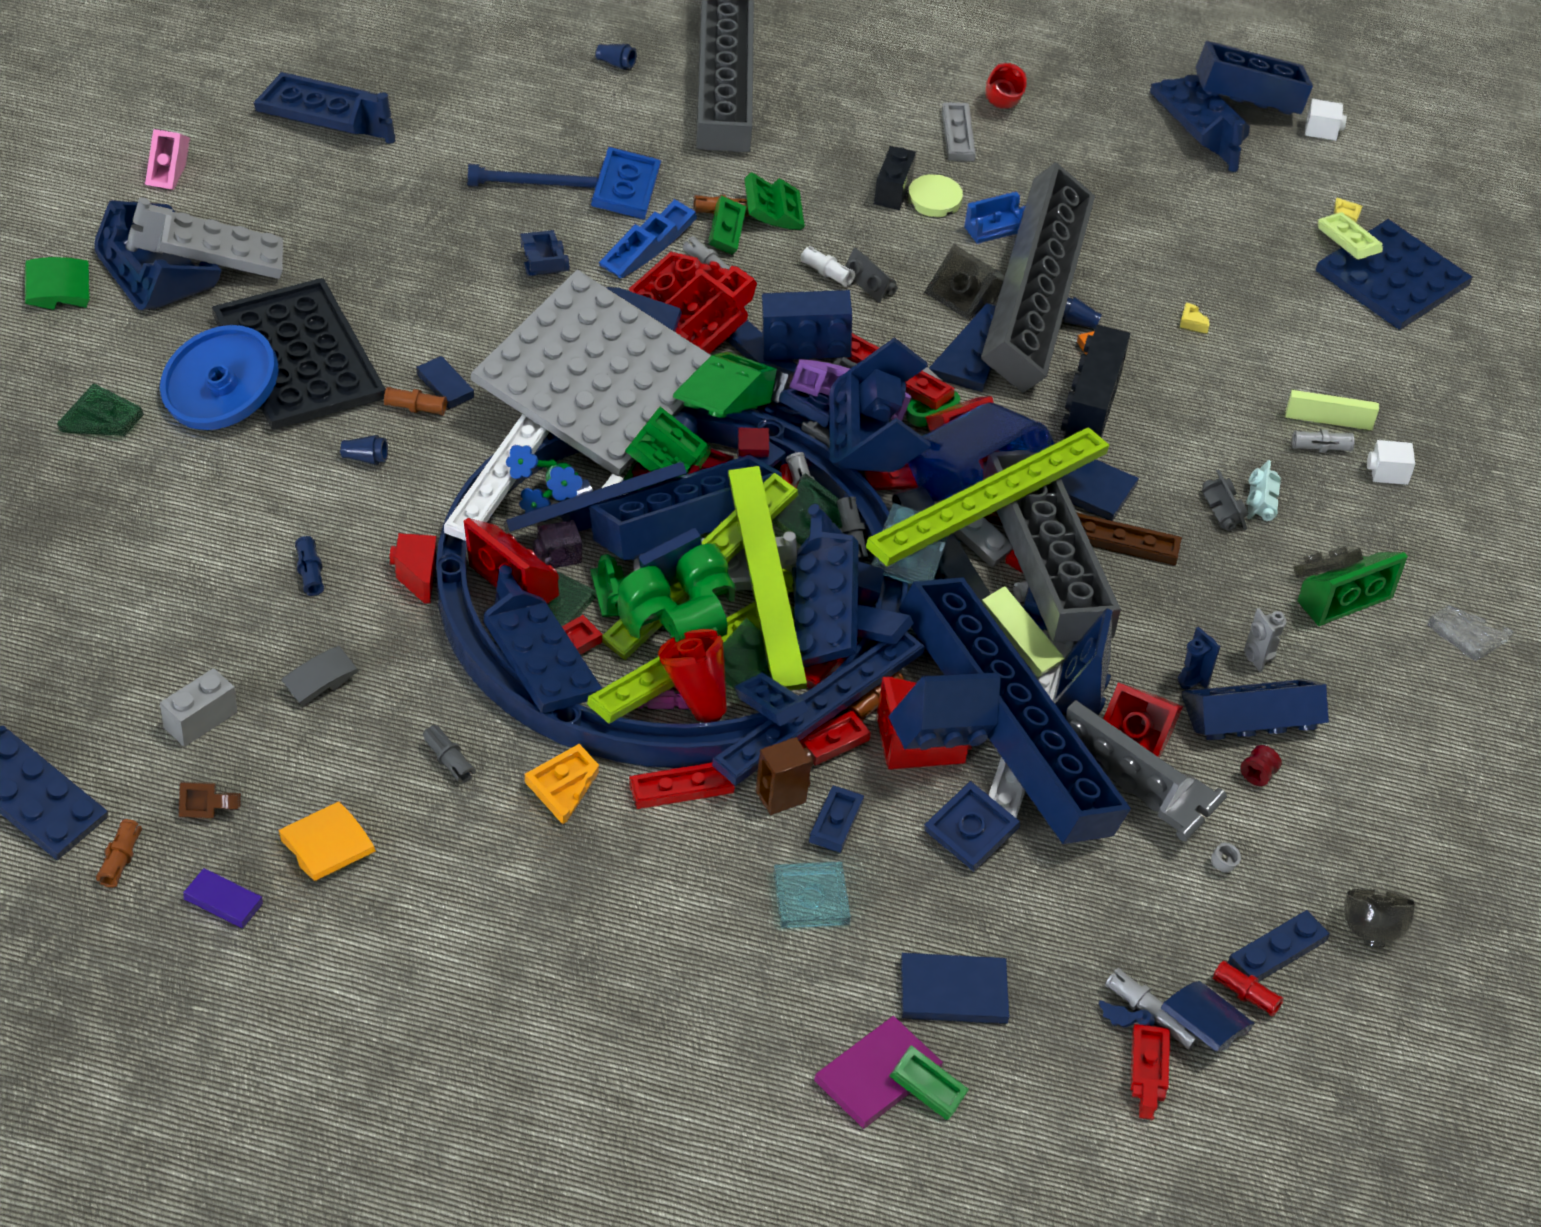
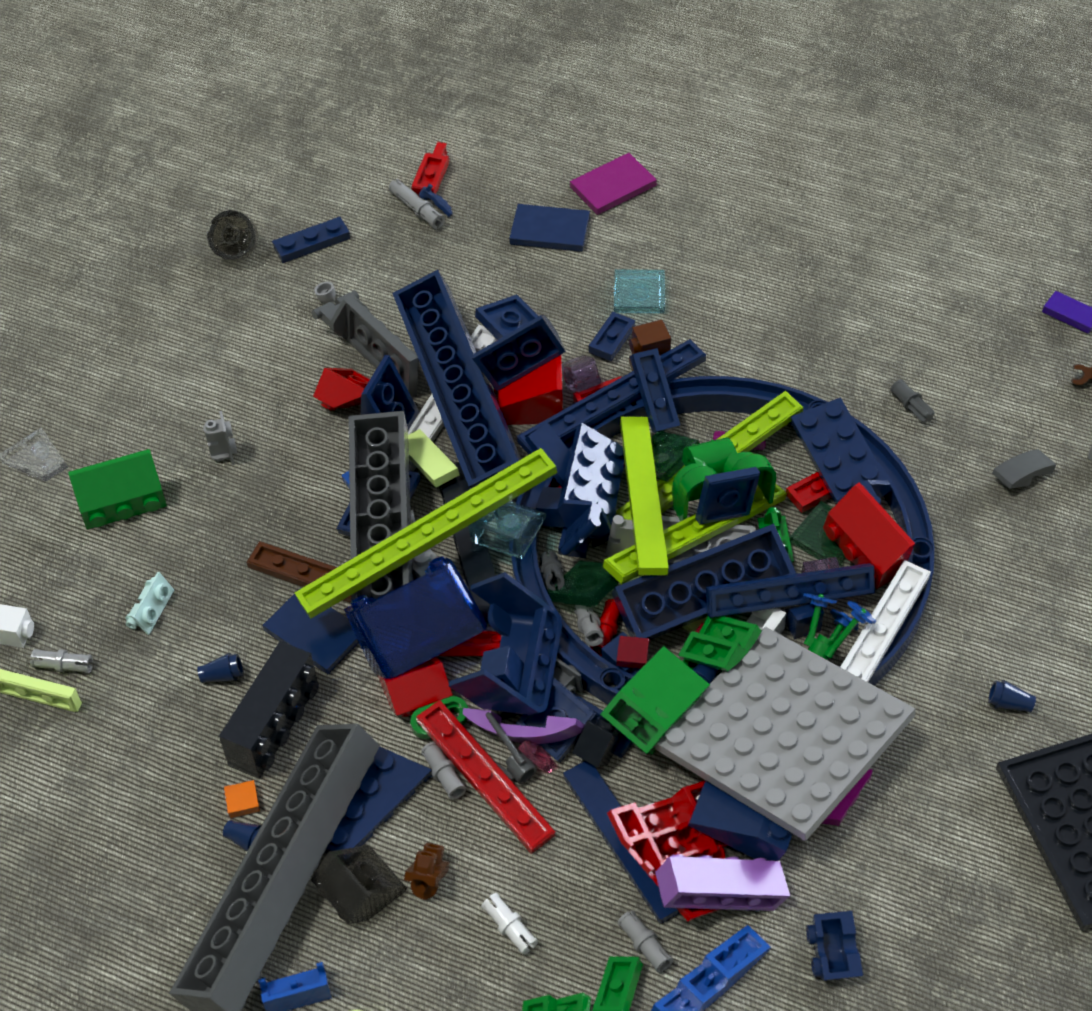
camera: 165 degrees left, 5 degrees up
(309, 566) = (1047, 577): dark blue pin -> none
(326, 841) = (1001, 343): light orange slope -> none
(415, 400) = (966, 755): dark orange pin -> none
(415, 563) = (952, 566): red slope -> none
(445, 381) = (937, 785): dark blue tile -> none
(563, 781) = (822, 374): light orange wing -> none
(654, 263) = (721, 883): none -> brick
(678, 785) = (745, 369): red tile -> none
(698, 672) = (716, 413): red cone -> none
(806, 325) = (557, 784): dark blue brick -> none
(865, 749) = (581, 373): none -> clear purple brick
(870, 276) = (470, 916): dark grey hinge -> none
(909, 285) = (427, 871): none -> reddish brown hips
(929, 1082) = (582, 167): green tile -> none
(1159, 437) = (221, 669): none -> dark blue cone
(1194, 320) = (121, 831): light yellow tile -> none
(1199, 660) = (288, 421): dark blue hinge -> none
(1207, 1015) = (382, 190): dark blue slope -> none
(1222, 492) = (187, 604): dark grey hinge -> none
(1248, 988) = (346, 211): red pin -> none
(1257, 707) = (252, 401): dark blue slope -> none
(1261, 765) = (268, 354): dark red wheel -> none
(1337, 559) = (131, 506): clear smoke plate -> none

